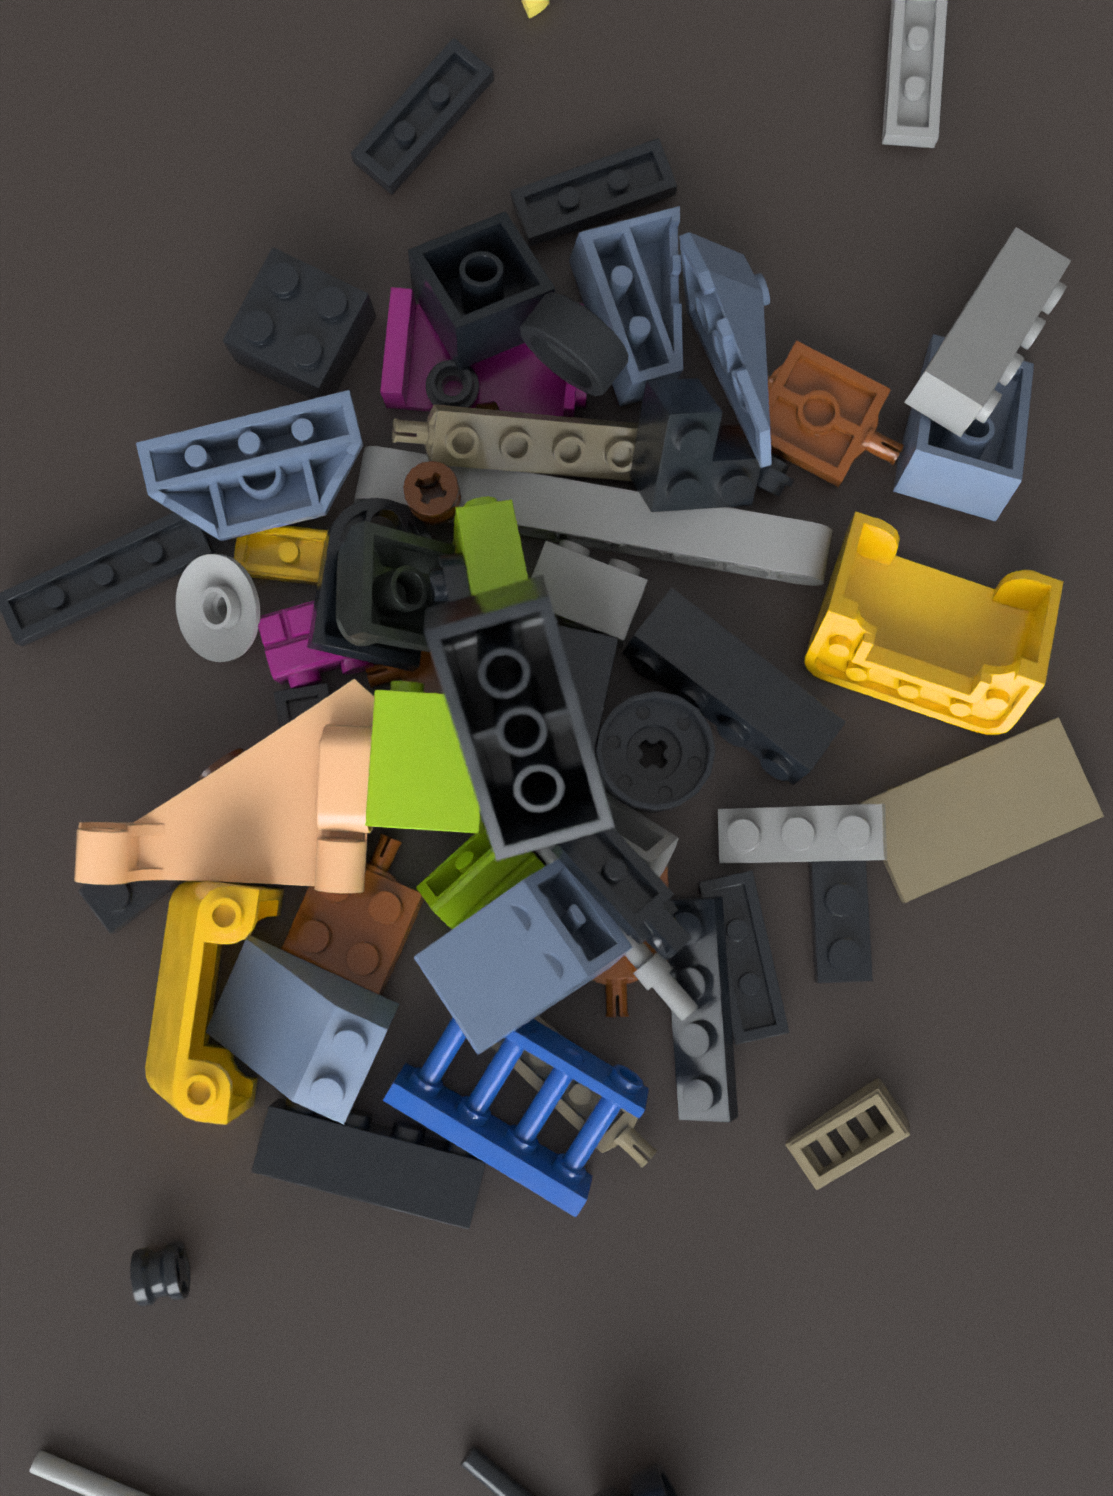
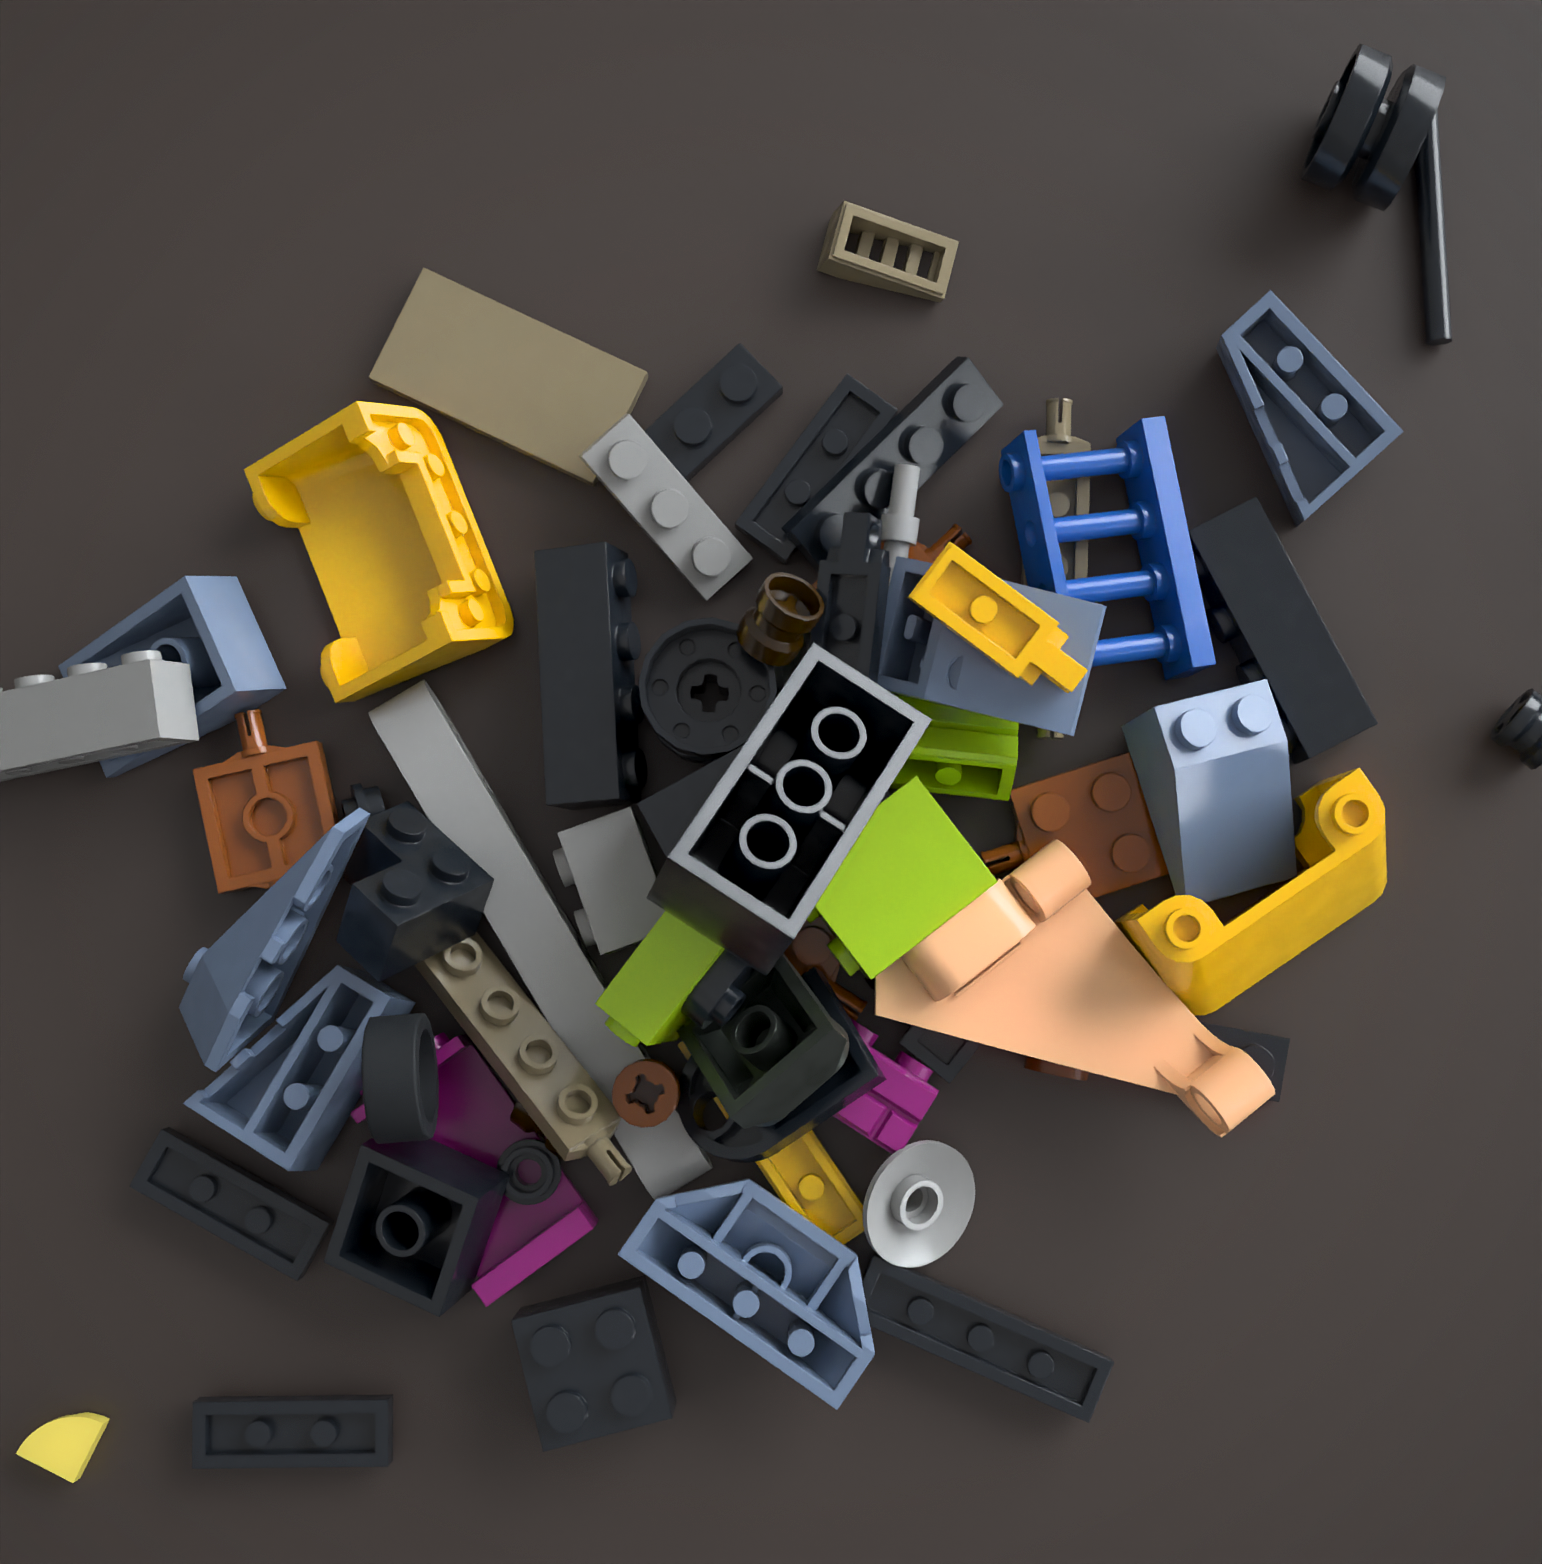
camera: 130 degrees left, 0 degrees up
(500, 1317) = (1301, 406): none -> sand blue wedge
(530, 969) = (996, 620): none -> yellow hinge
(657, 833) = (783, 613): none -> dark brown wheel

